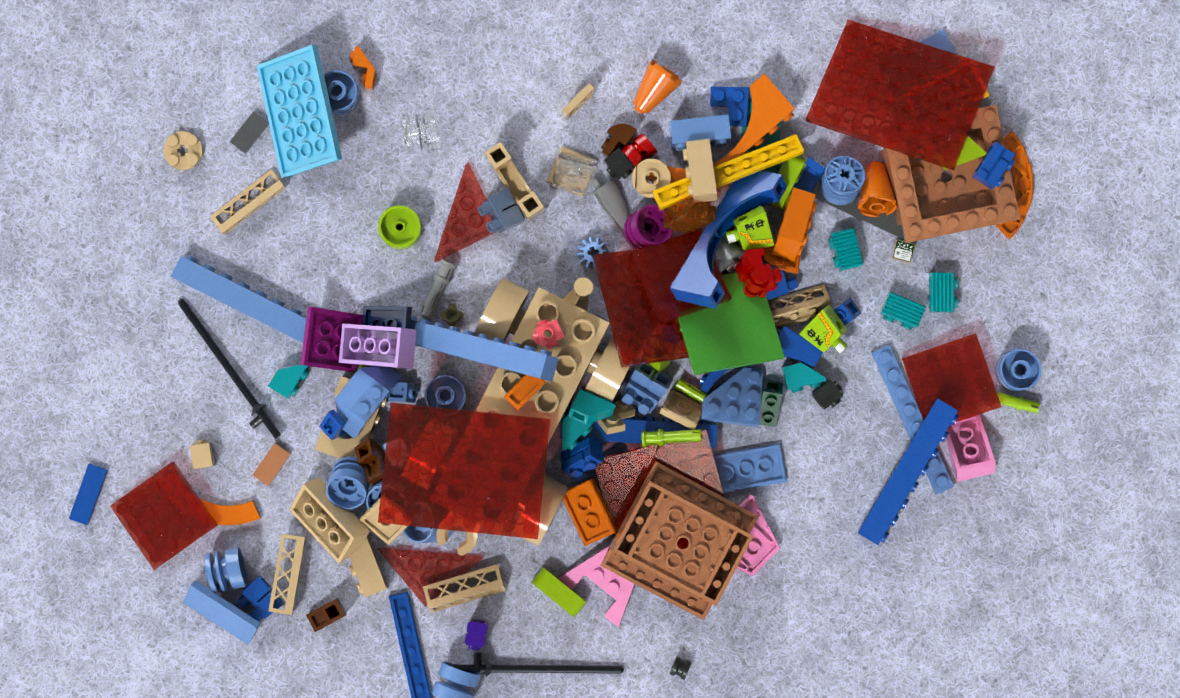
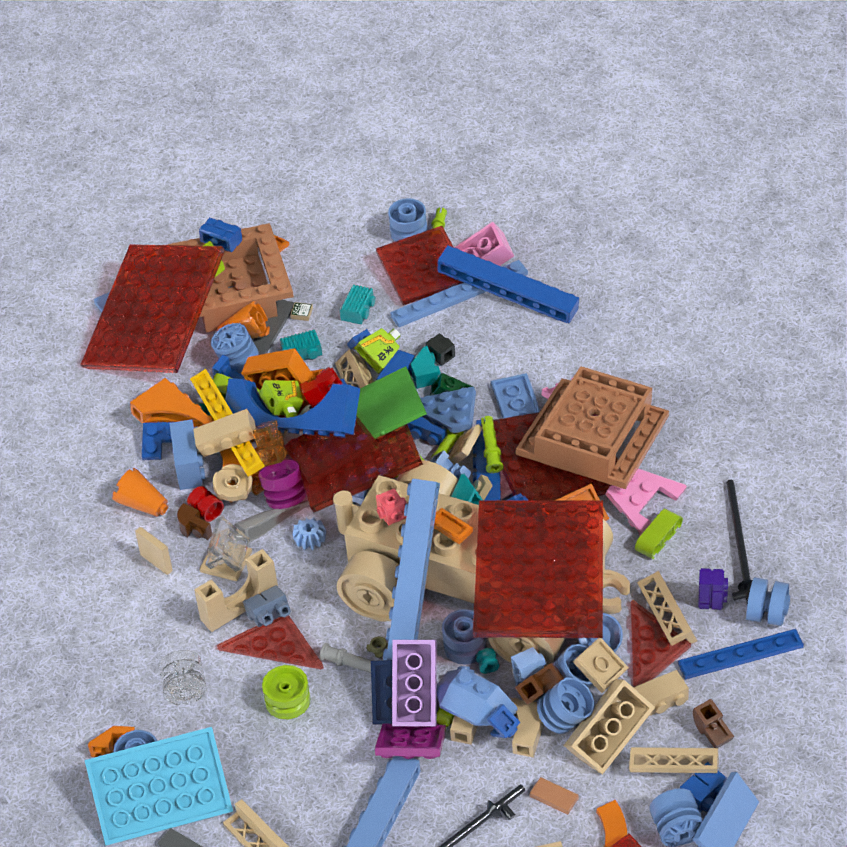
camera: 85 degrees left, 40 degrees down
(287, 380) = (458, 783): teal slope -> none
(618, 165) = (217, 512): pearl dark grey brick -> none
(680, 668) = (720, 434): pearl dark grey wheel -> none
(942, 292) = (338, 279): teal brick -> none

